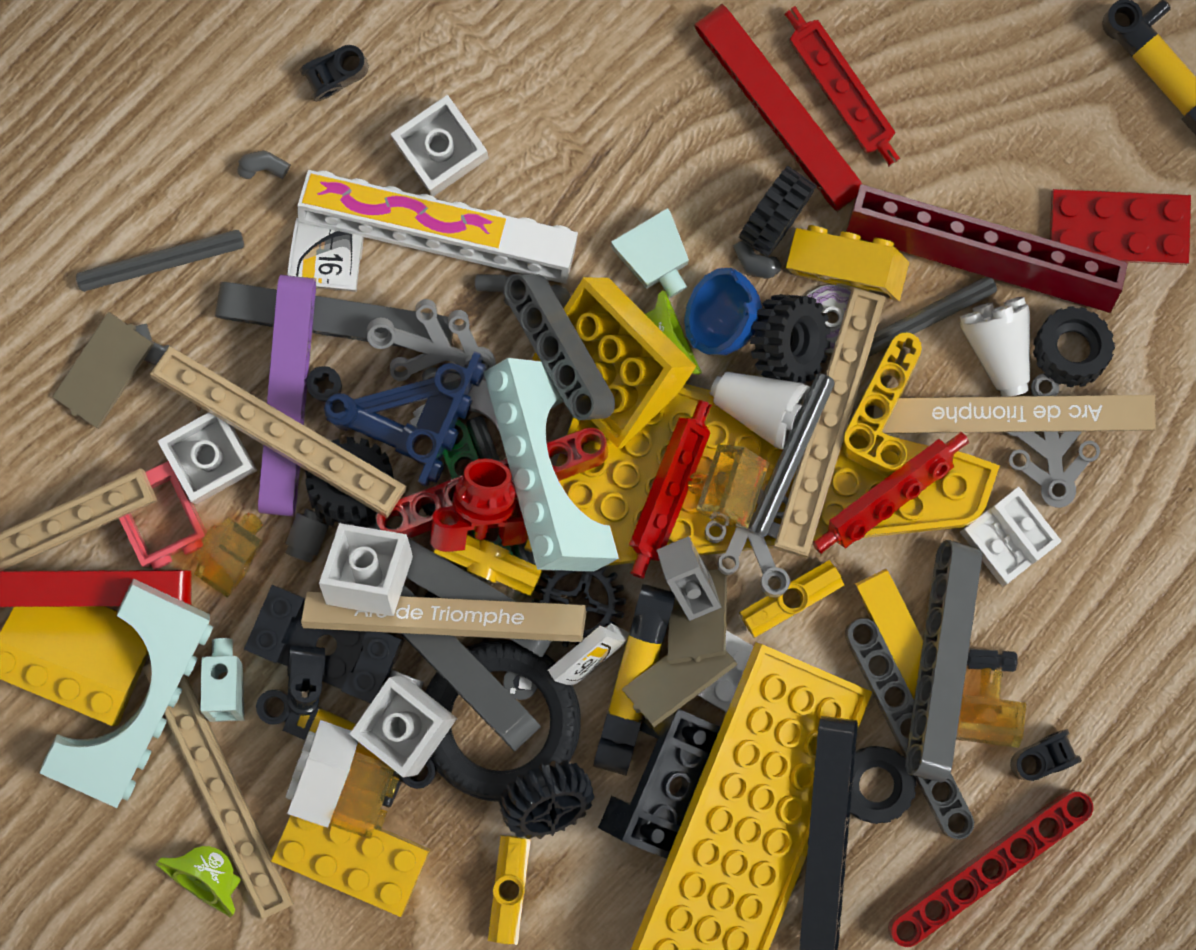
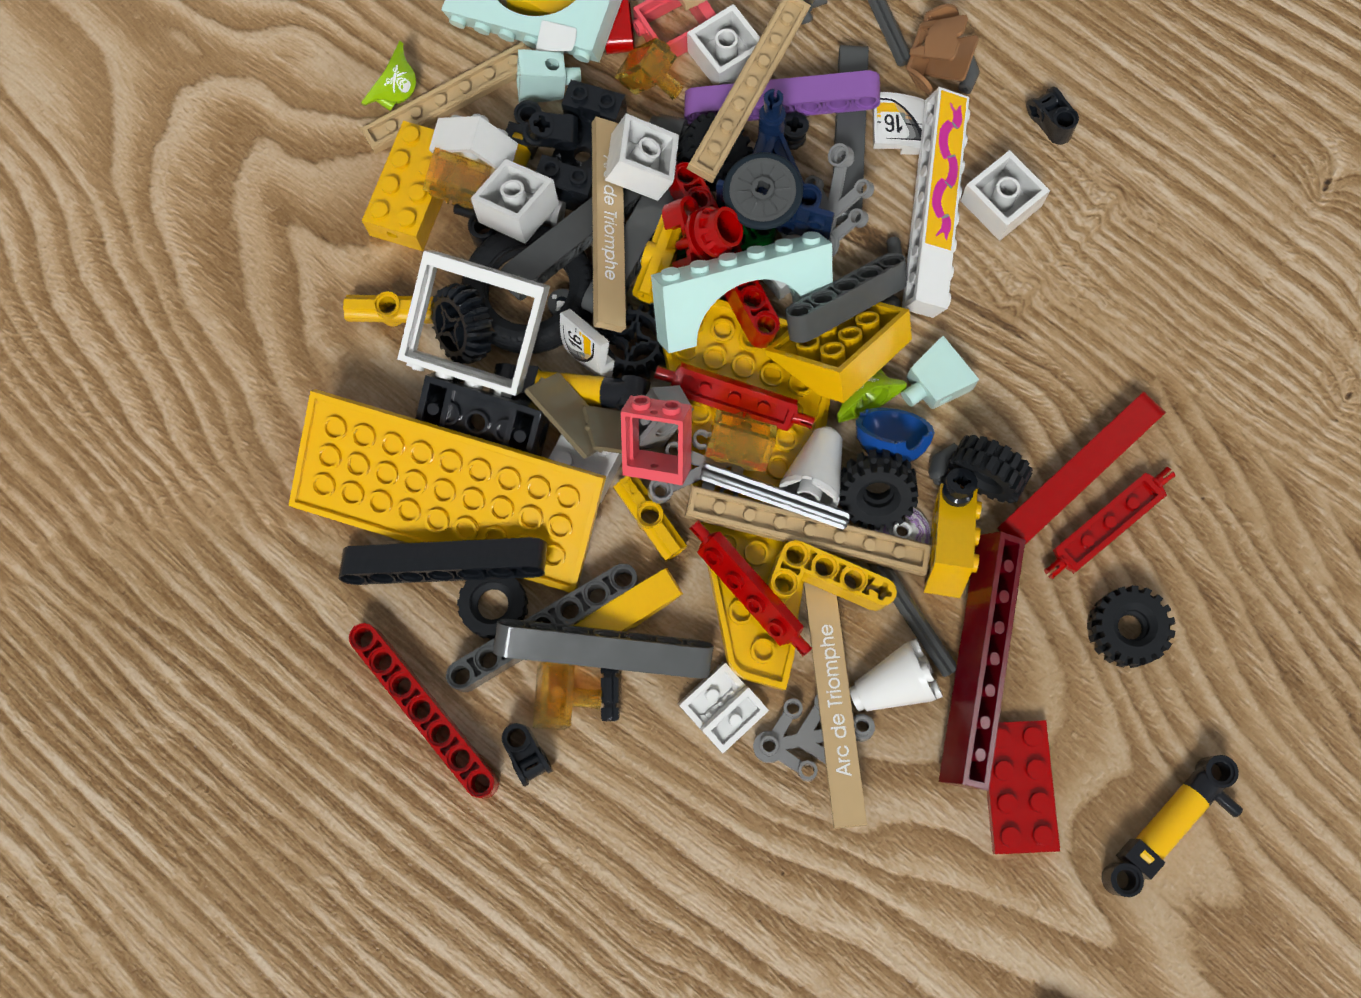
camera: 90 degrees right, 10 degrees down
(184, 664) = (556, 37): none -> white sticker
(238, 187) = (943, 53): none -> medium nougat piece
(421, 418) = (771, 173): none -> dark grey wheel
(521, 761) = (448, 369): none -> white window
(741, 601) = (641, 463): none -> coral window
(802, 254) = (953, 493): none -> black wheel
(964, 57) = (1153, 621): none -> black tyre
(1084, 323) = (926, 753): black tyre -> none

